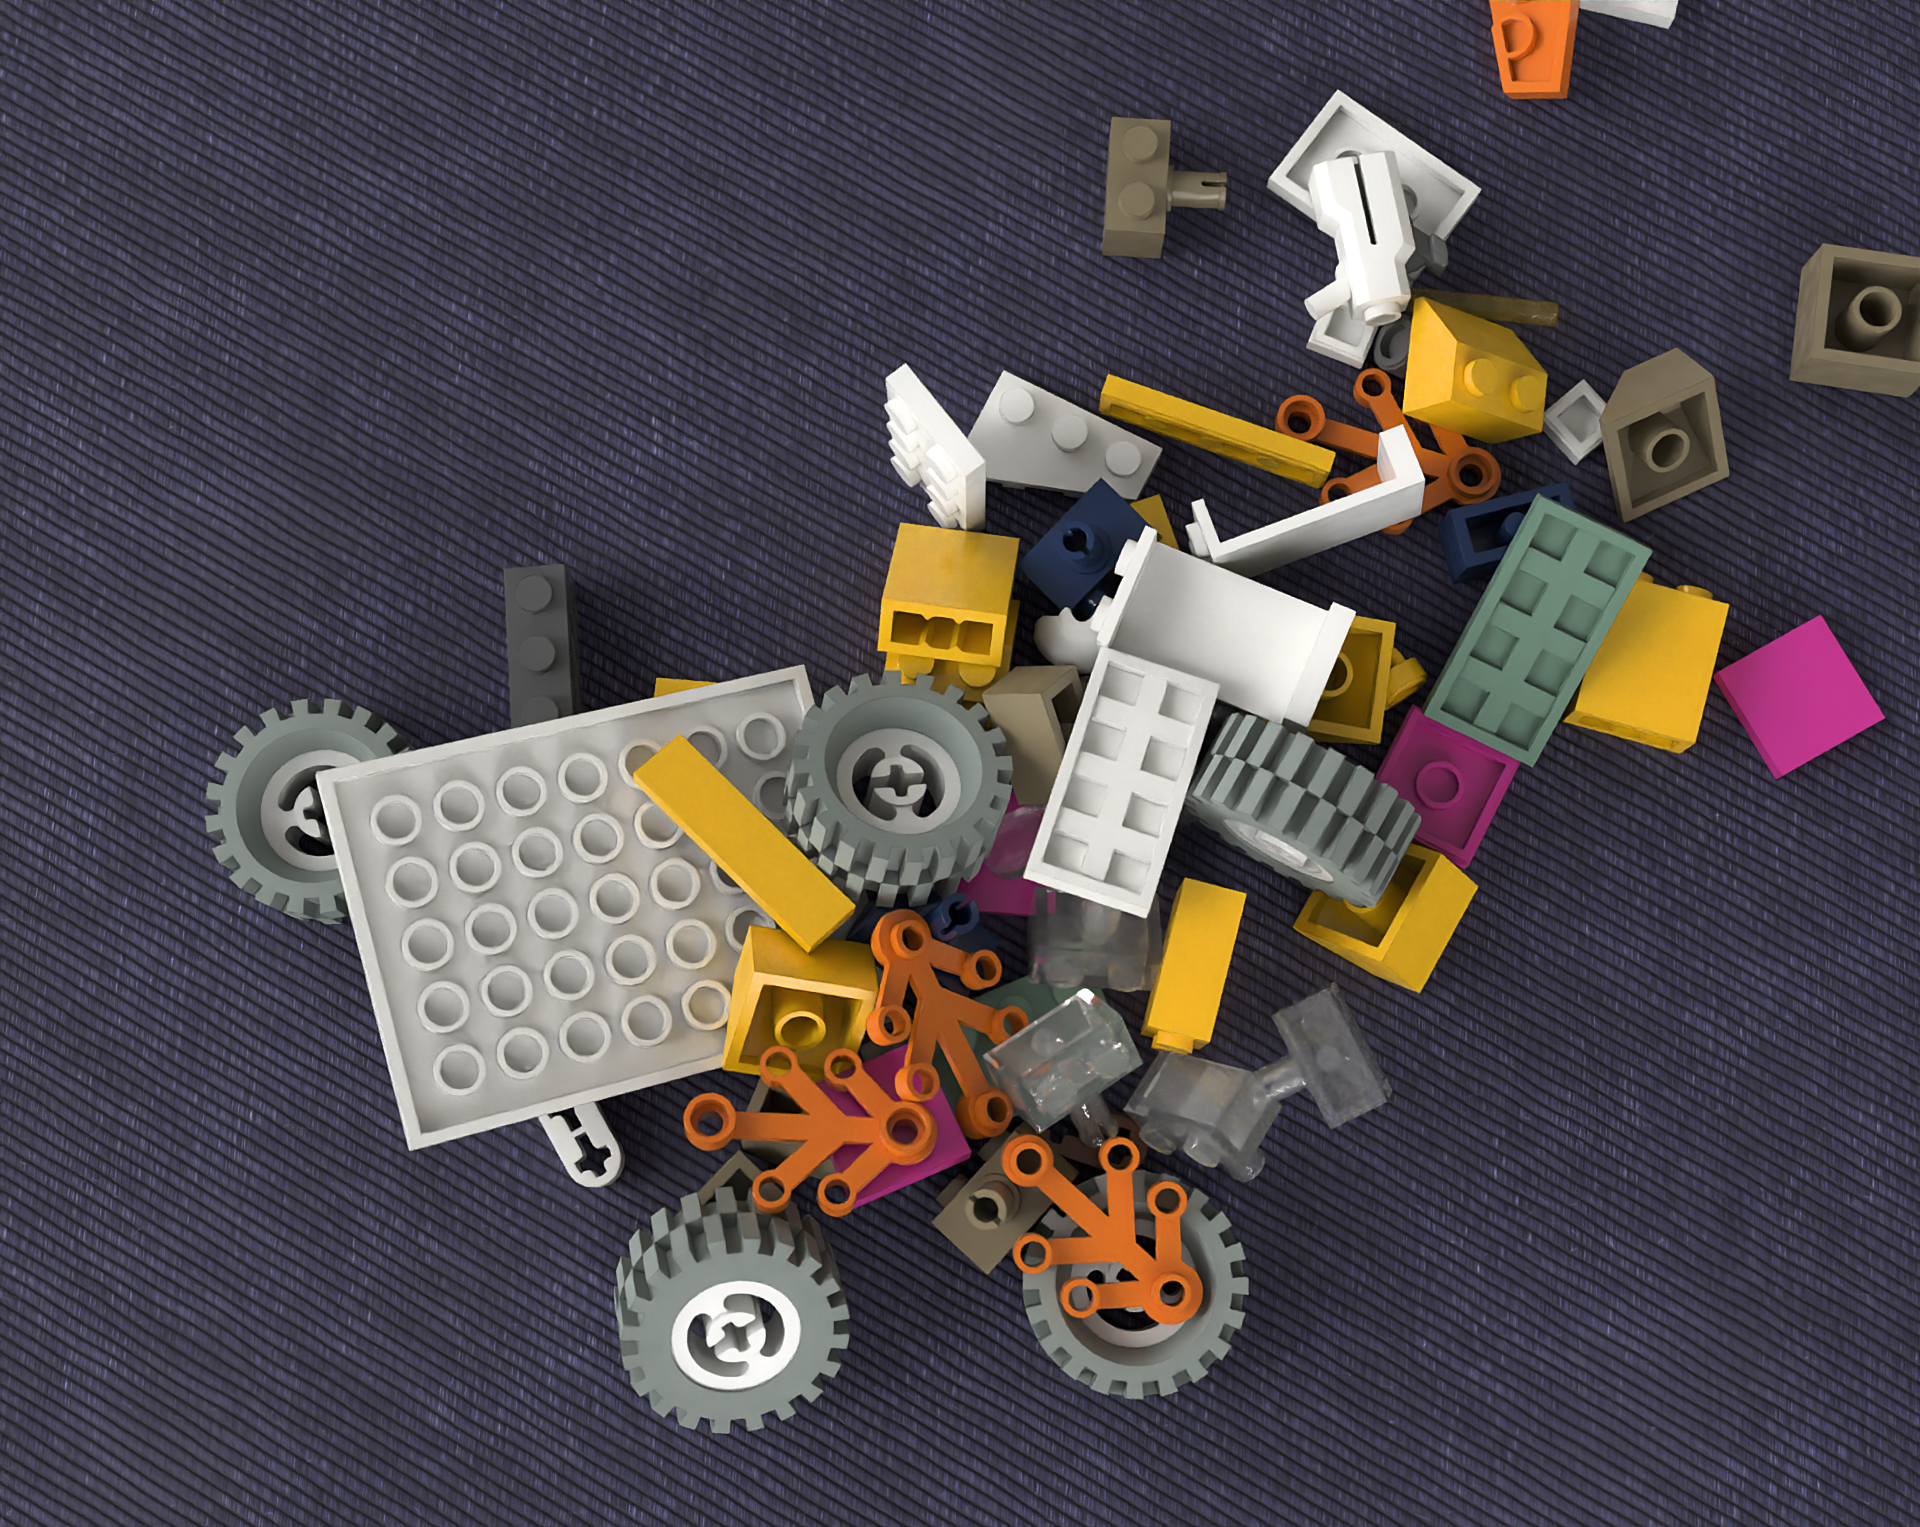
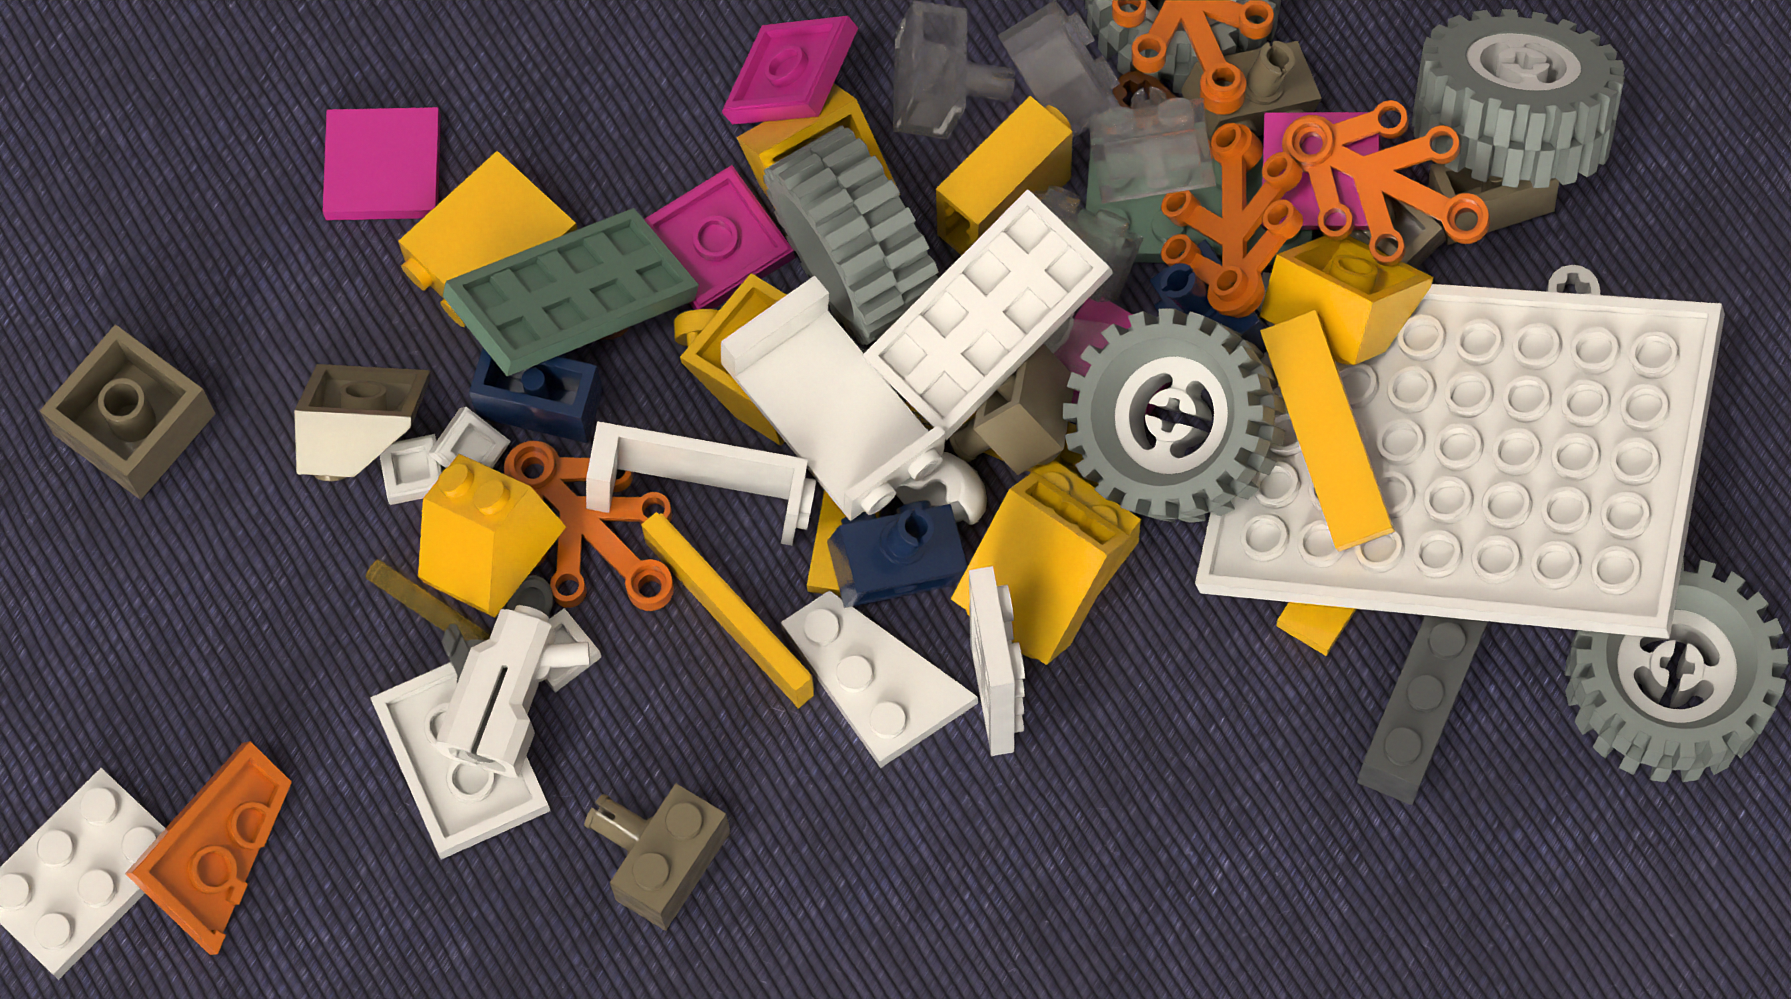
camera: 150 degrees left, 10 degrees down
(1467, 980) = (790, 70): none -> dark pink tile
(1540, 460) = (470, 437): none -> white tile

